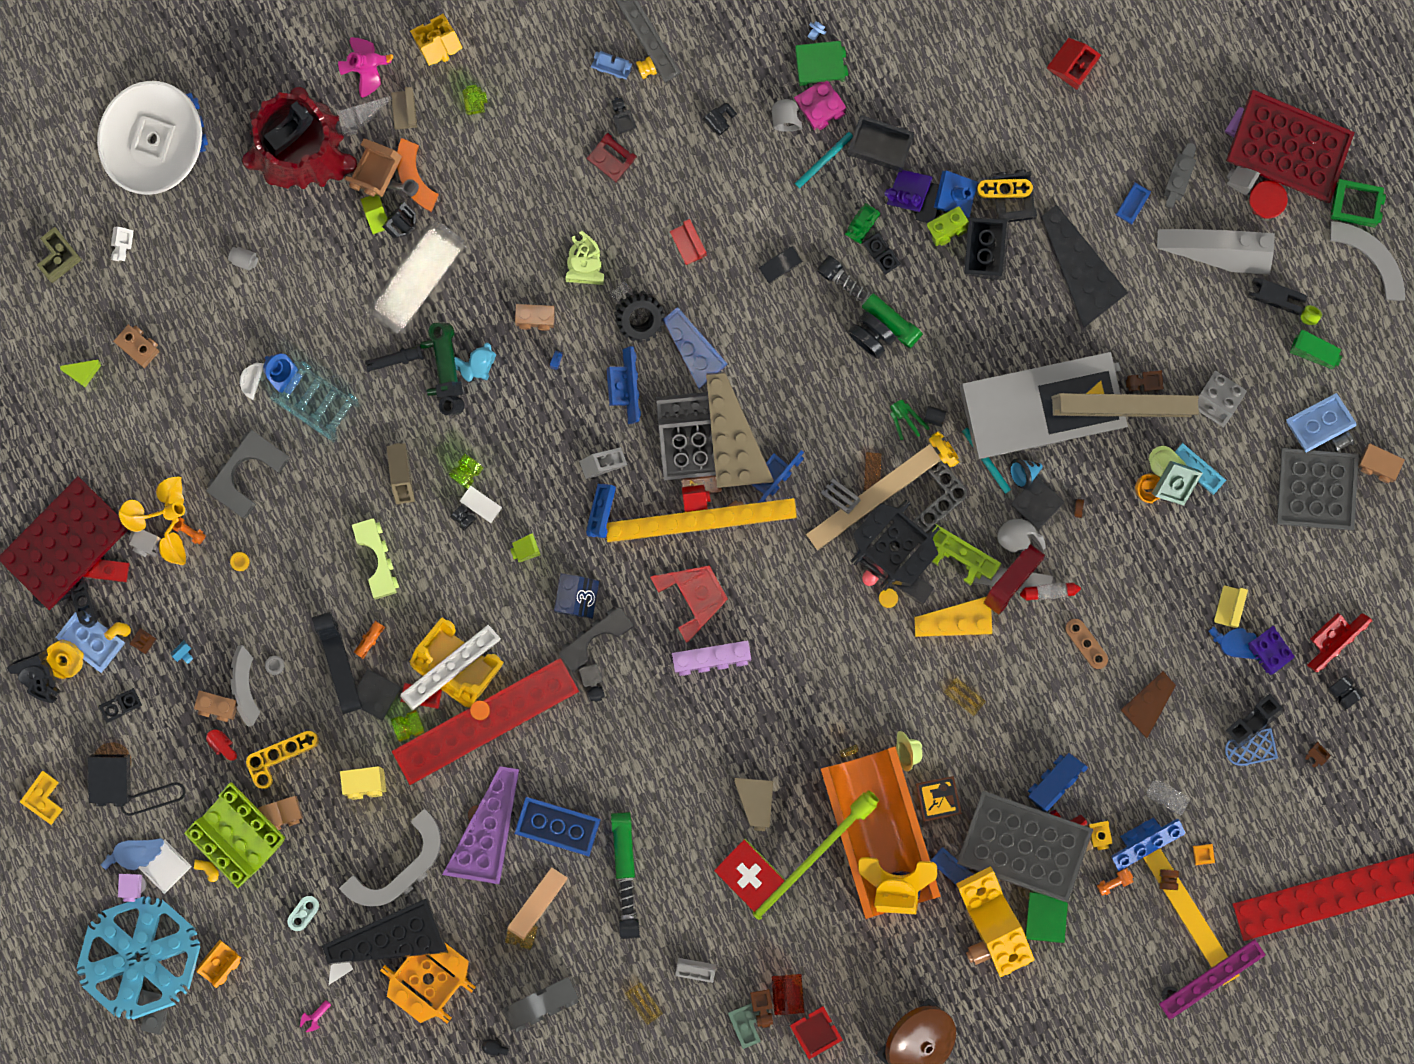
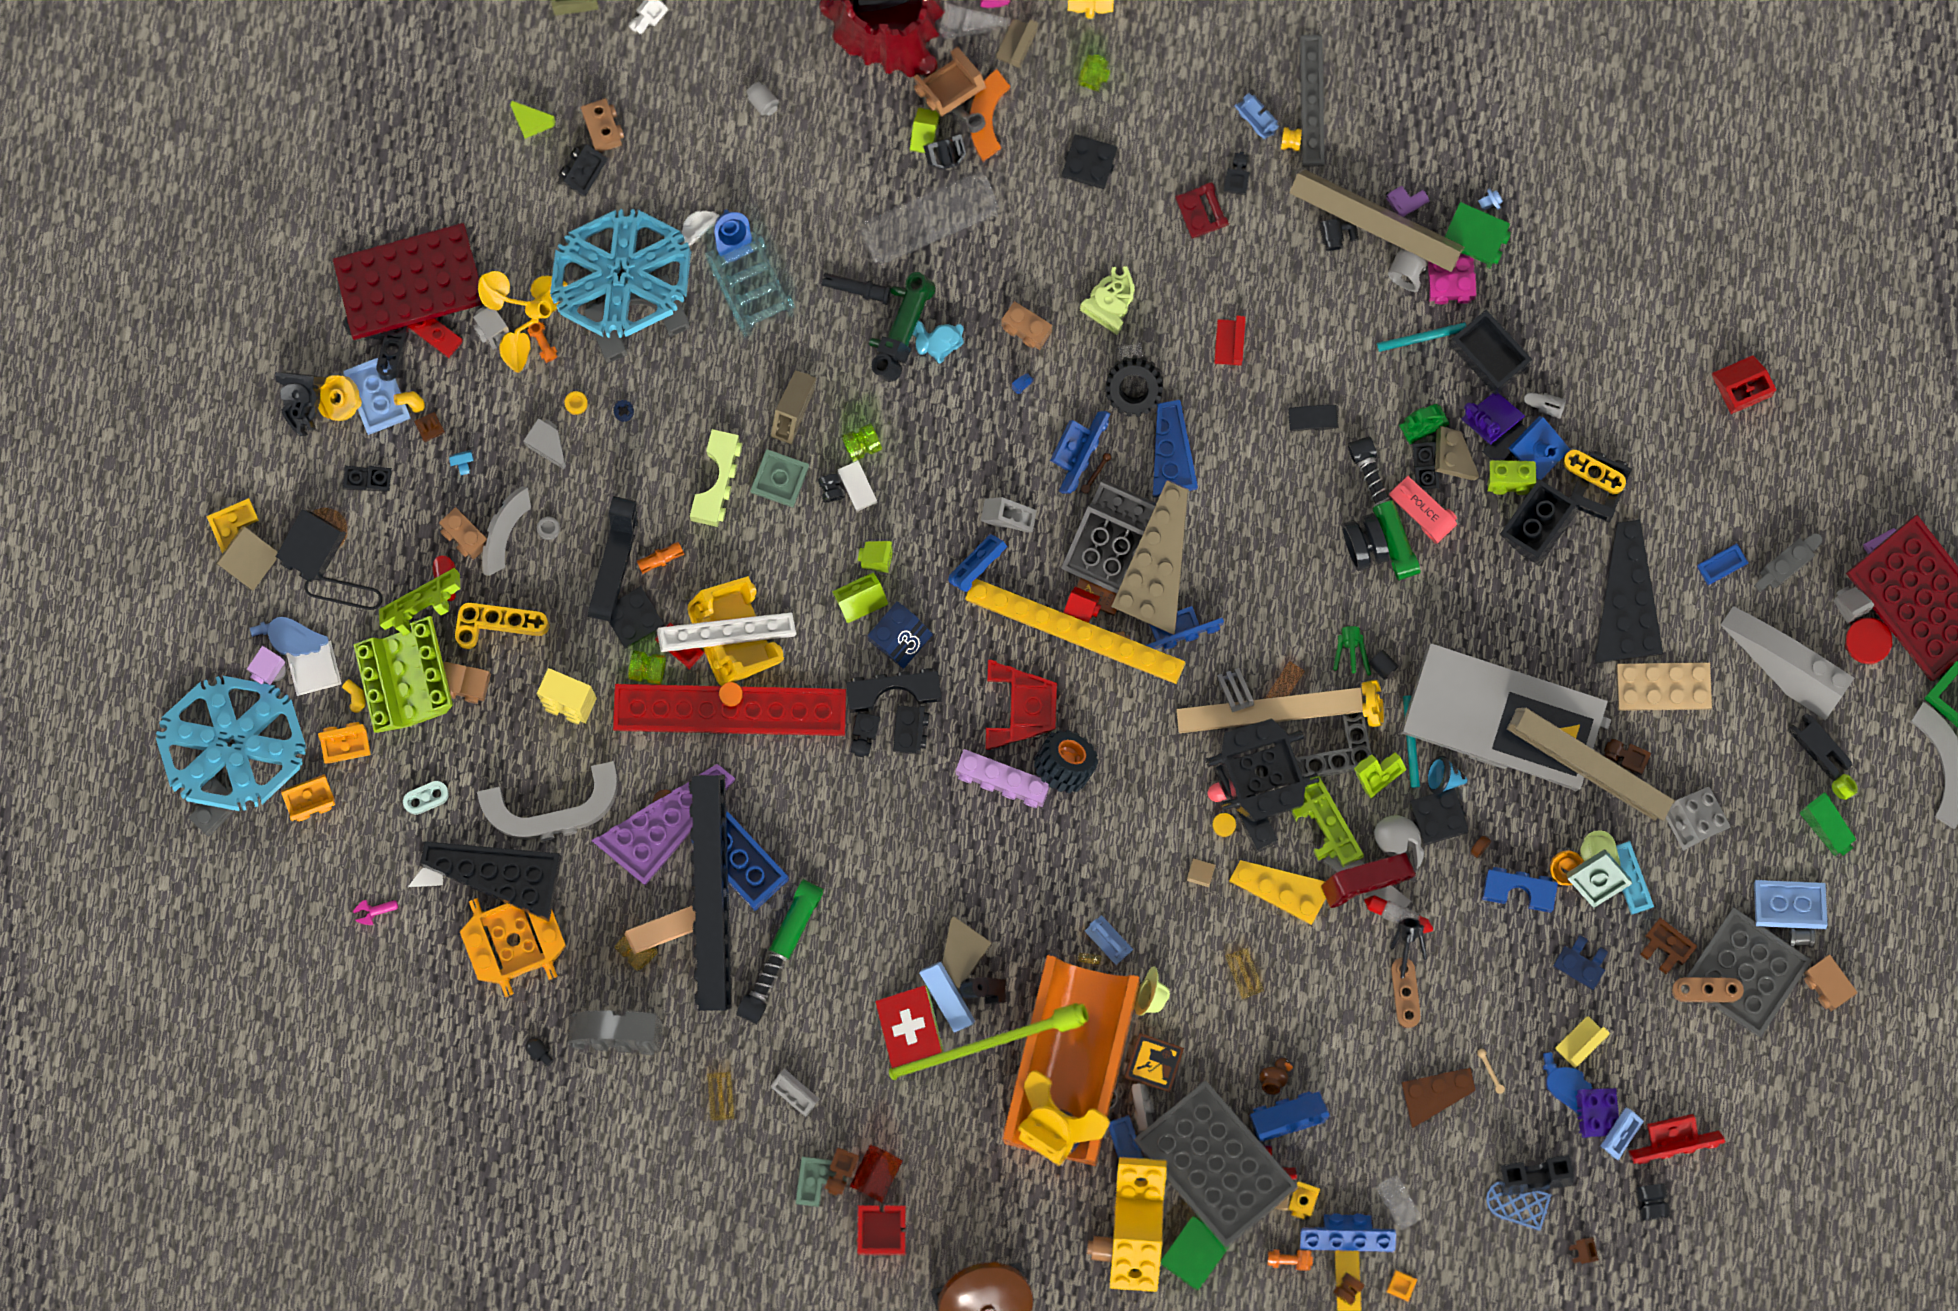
camera: 30 degrees right, 5 degrees down
(68, 815) = (247, 558): none -> dark tan tile
(141, 386) = (582, 169): none -> black bracket
(204, 452) = (607, 266): none -> medium azure plate
(220, 763) = (432, 593): none -> lime hinge
(221, 908) = (344, 742): none -> light orange bracket
(236, 603) = (546, 442): none -> light grey slope
(274, 543) = (622, 404): none -> dark blue bush
(421, 531) = (780, 478): none -> sand green plate
(509, 168) = (1089, 161): none -> black plate
(531, 584) = (860, 597): none -> lime panel
(552, 863) = (711, 892): none -> black brick
(623, 660) = (909, 730): none -> black bracket
(648, 379) = (1086, 488): none -> reddish brown hinge
(743, 93) = (1376, 220): none -> dark tan tile
(750, 619) = (1066, 761): none -> black wheel
(755, 69) = (1402, 203): none -> medium lavender piece
(764, 838) = (947, 996): none -> light blue tile
(791, 815) = (991, 988): none -> black leg
(854, 729) = (1108, 940): none -> medium blue hinge
(891, 642) = (1201, 872): none -> tan slope
(897, 234) = (1453, 455): none -> dark tan wing
(898, 286) = (1424, 509): none -> coral door
(935, 159) = (1538, 401): none -> light grey hinge
(949, 834) = (1143, 1106): none -> light grey plate
(976, 500) = (1375, 776): none -> lime plate
(1030, 759) = (1275, 1077): none -> reddish brown animal
(1065, 598) = (1409, 930): none -> black plant
(1140, 516) = (1540, 890): none -> blue arch
(1142, 316) = (1664, 686): none -> tan plate
(1192, 673) = (1499, 1088): none -> tan hinge
(1198, 554) = (1579, 967): none -> dark blue plate
(1251, 498) = (1671, 942): none -> reddish brown plate
(1290, 521) = (1697, 993): none -> medium nougat plate
(1296, 655) = (1622, 1133): none -> light blue tile

